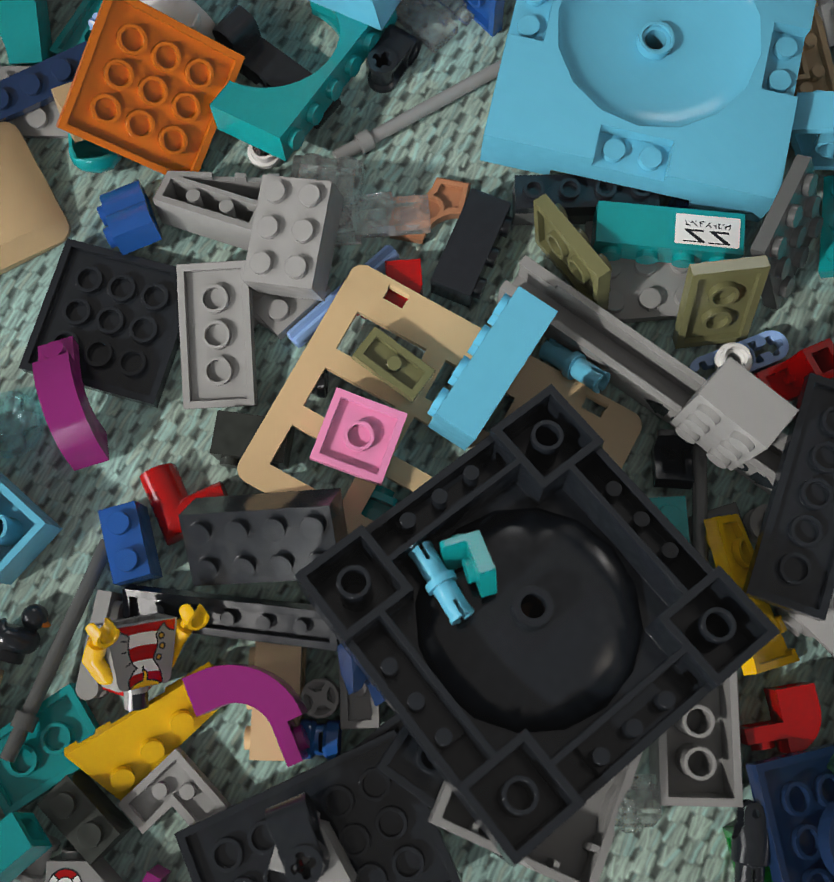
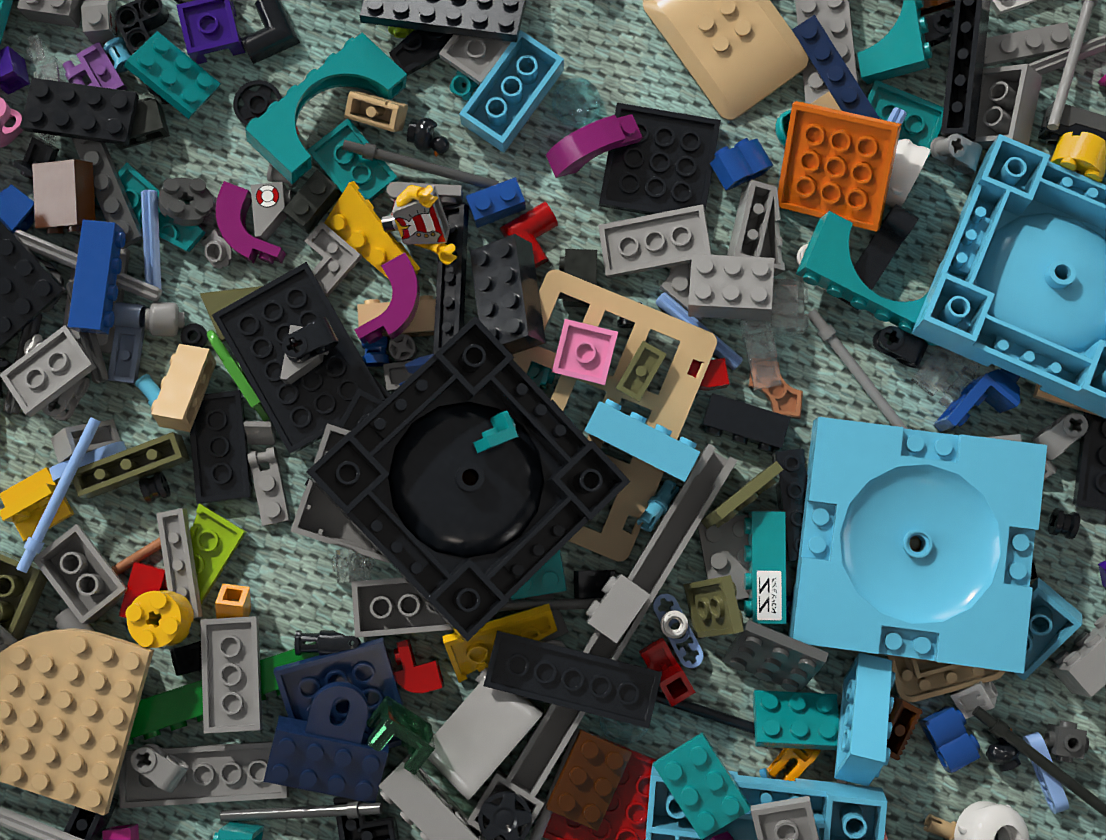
camera: 80 degrees right, 5 degrees up
(441, 582) = (481, 415): medium azure pin -> none

